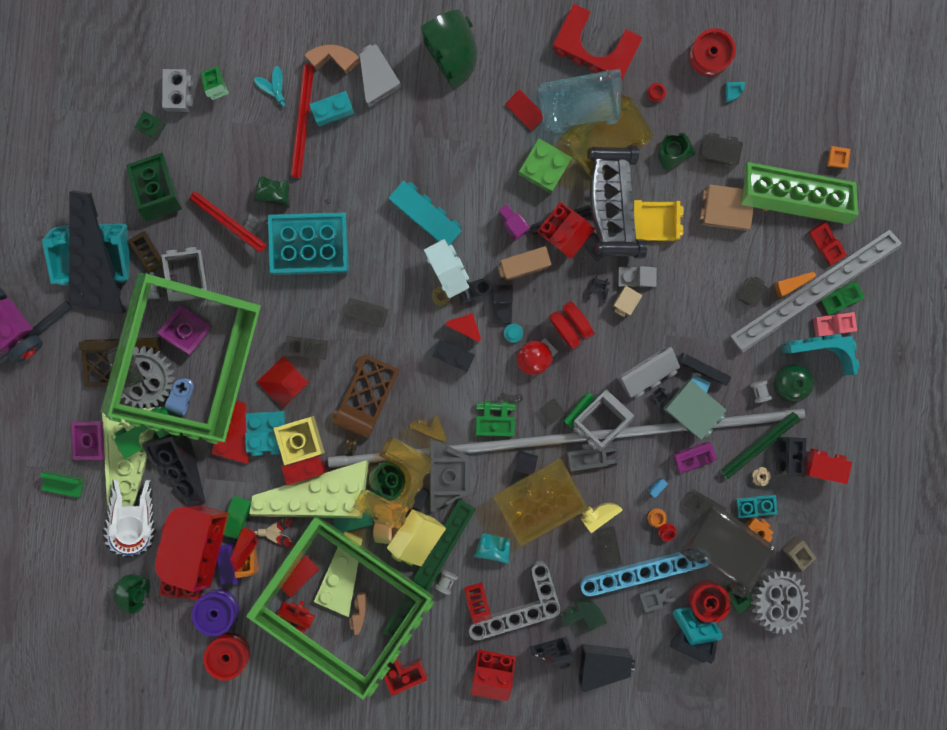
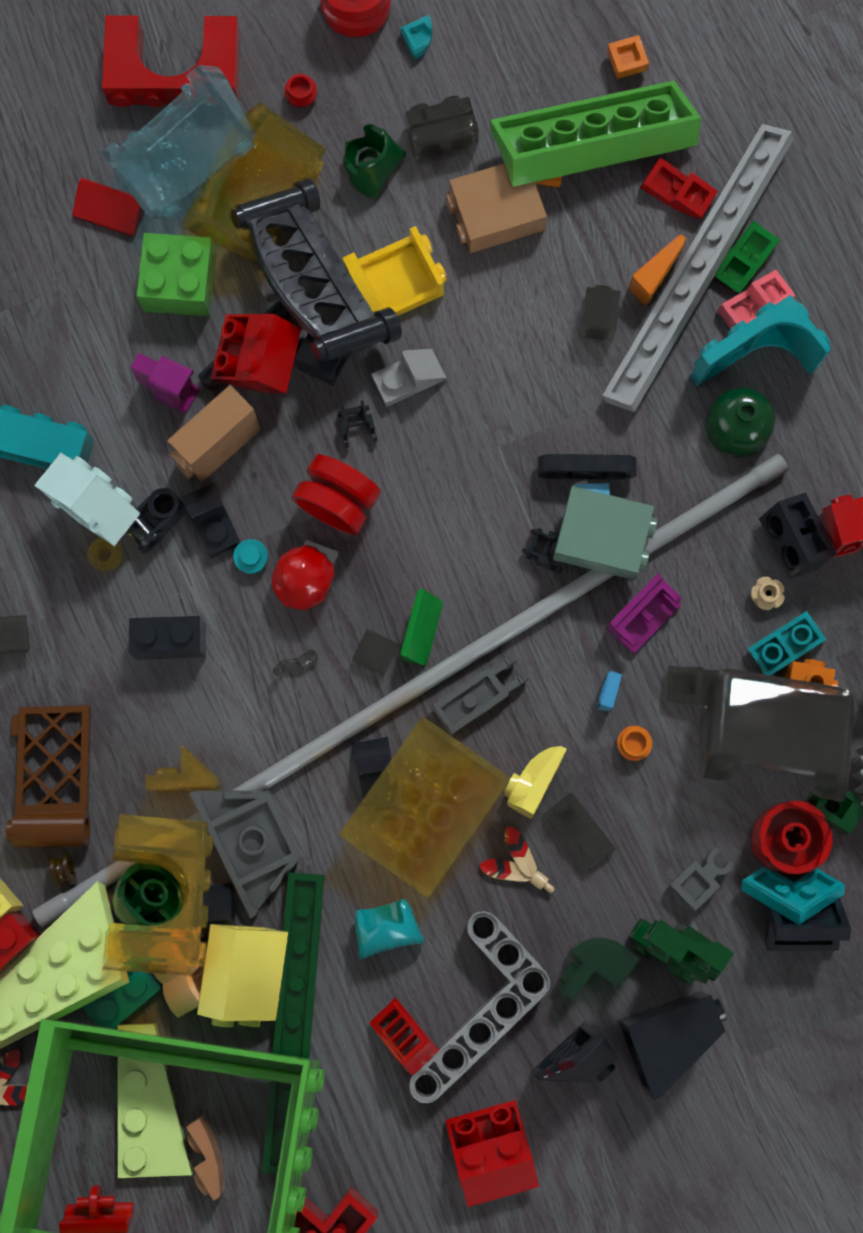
camera: 30 degrees left, 10 degrees down
(301, 574) = (72, 1141): red slope -> none
(446, 582) = (333, 1027): light grey bush -> none
(465, 325) = (165, 581): red slope -> none
(495, 425) = (291, 719): green plate -> none
(573, 550) = (523, 867): none -> piece
(616, 407) = (472, 592): light grey window -> none
(626, 301) = (409, 420): tan brick -> none
(628, 630) = (687, 950): none -> dark green bracket
(636, 578) = (648, 857): medium azure beam -> none
(649, 372) = (500, 511): light grey slope -> none
(667, 532) = (662, 757): red plate -> none
(760, 391) = (695, 458): light grey bush -> none
(760, 445) = (739, 543): dark green axle -> none

